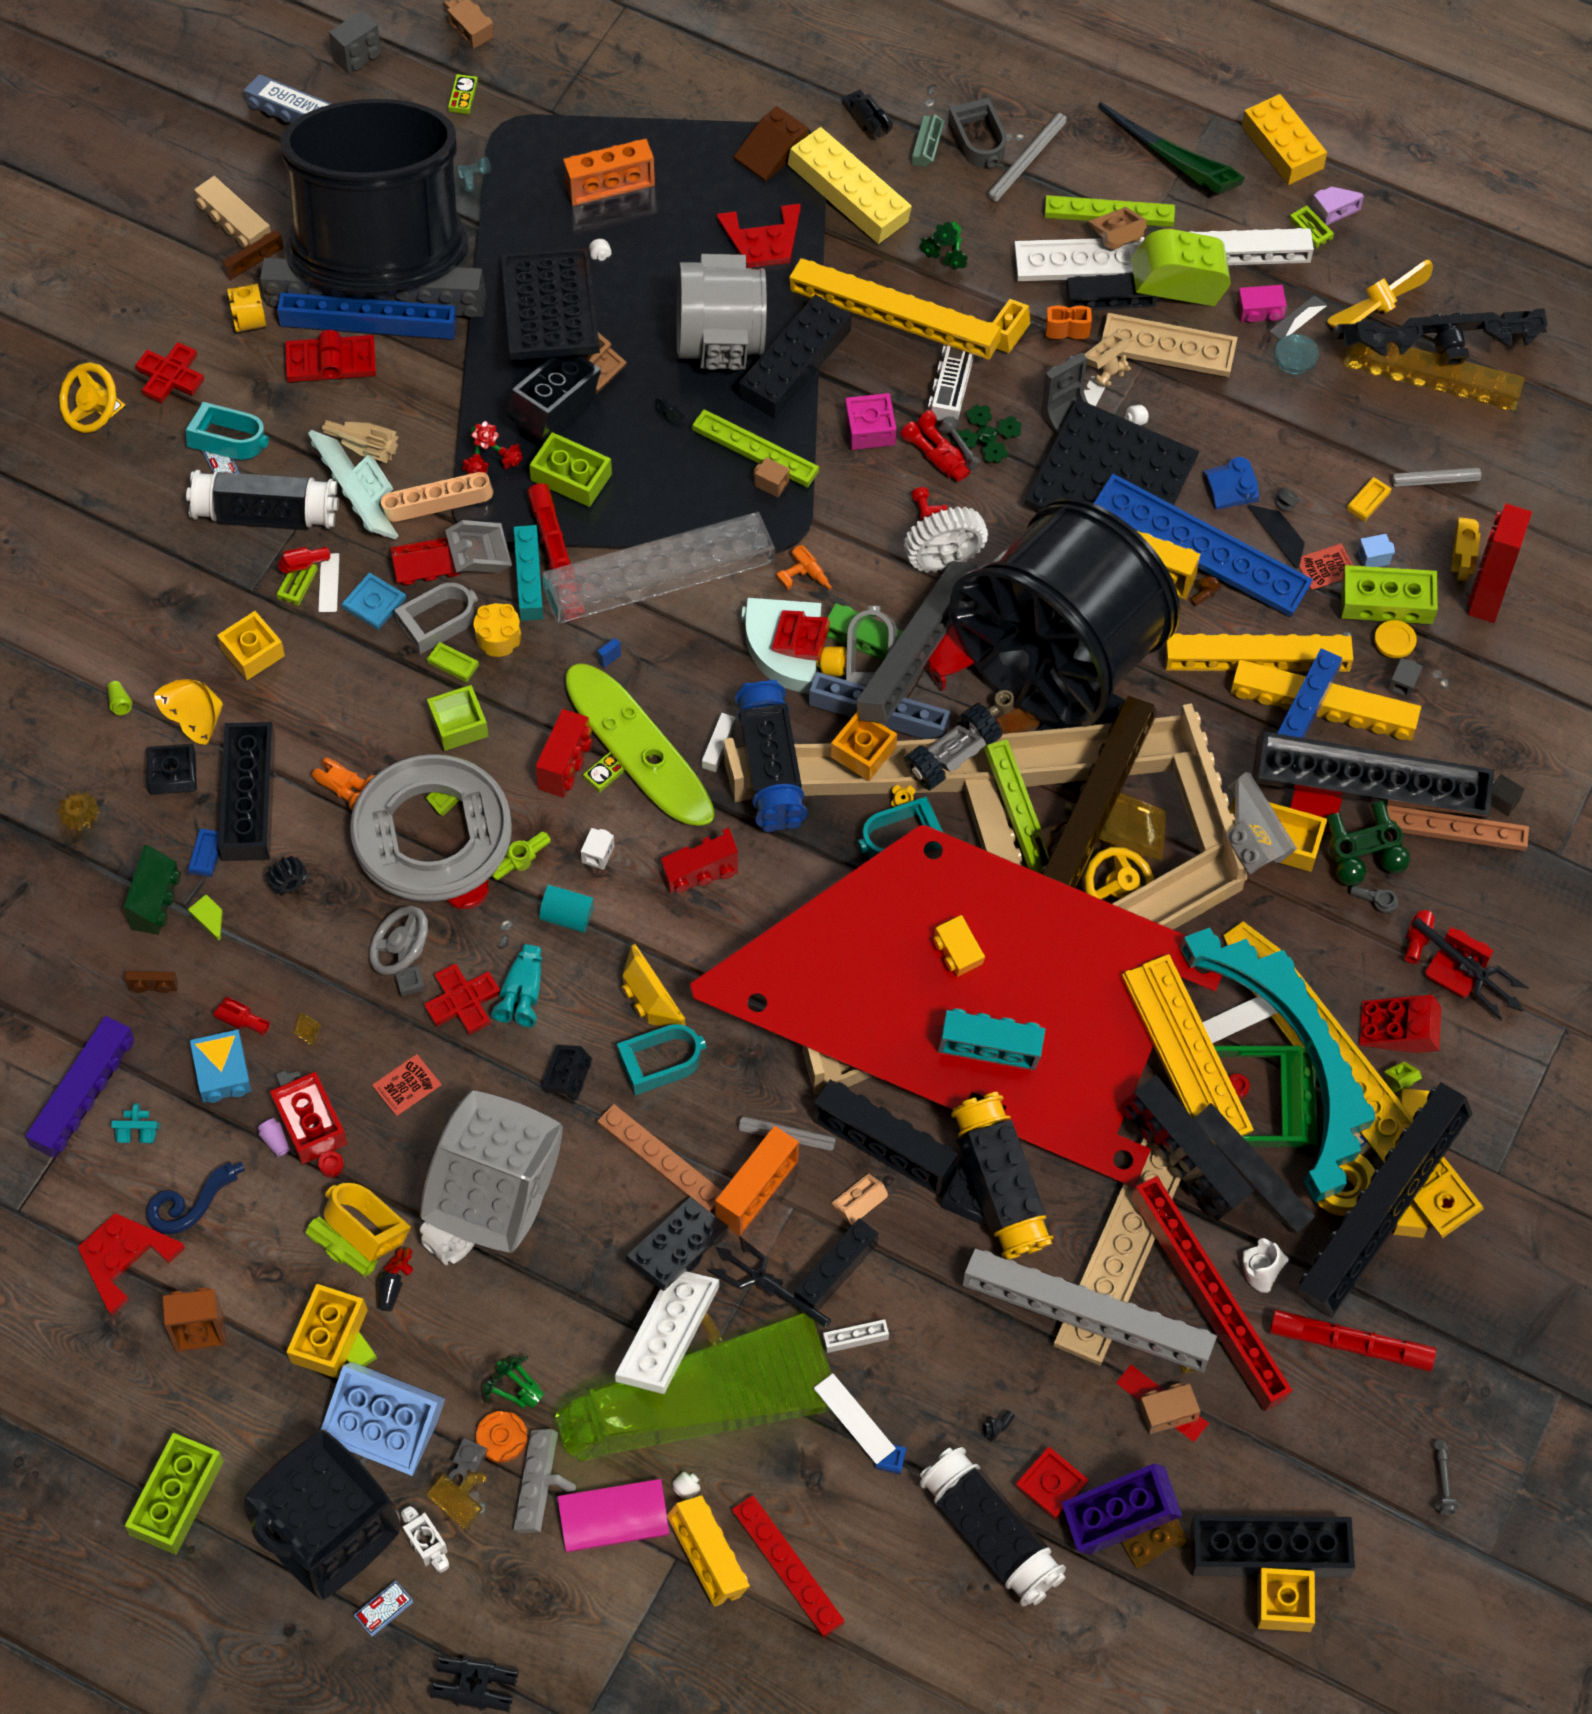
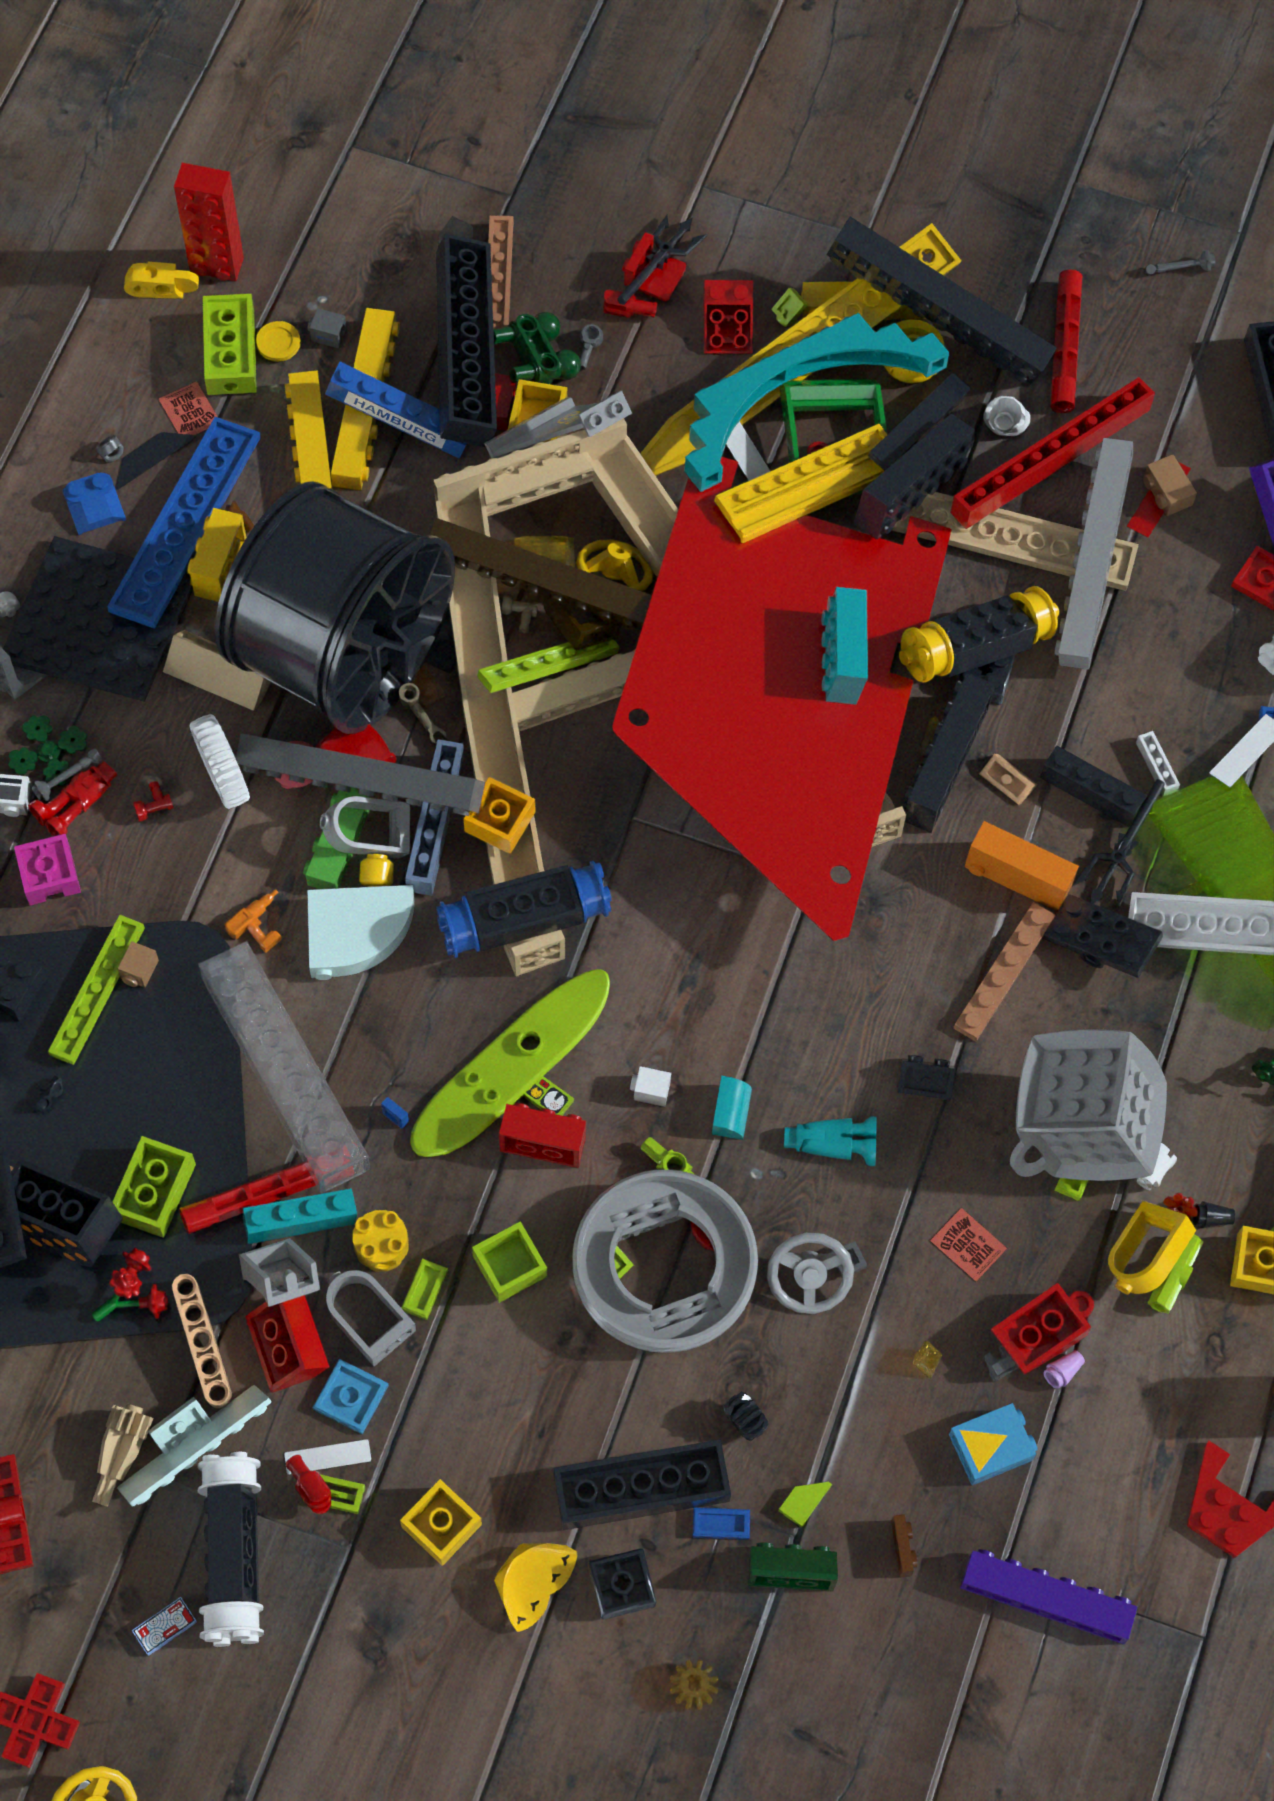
camera: 100 degrees left, 5 degrees up
(119, 700) = (530, 1673): lime cone -> none
(147, 1129) = (1081, 1524): teal hips -> none
(217, 1179) = (1124, 1419): dark blue plant -> none
(224, 446) = (119, 1657): teal window -> none
(240, 1016) = (926, 1435): red arm -> none
(340, 780) = (607, 1382): orange piece -> none
(462, 999) = (860, 1200): red plate -> none
(633, 1072) = (909, 1013): teal window -> none
(648, 992) = (818, 1009): yellow wedge -> none
(702, 864) = (656, 973): red wedge -> none
(716, 745) = (494, 981): white piece -> none
(800, 635) = (357, 902): red slope -> none
(803, 1136) = (952, 853): light grey axle -> none
(899, 791) = (539, 785): yellow plate -> none
(917, 807) = (569, 754): teal window -> none
(954, 747) = (492, 723): plate -> none
(958, 946) = (746, 684): yellow brick -> none
(992, 1428) = (1225, 631): black plate -> none
(1369, 499) = (100, 374): yellow tile -> none
(1375, 551) = (172, 362): light blue brick -> none
(1436, 477) = (66, 313): light grey axle -> none

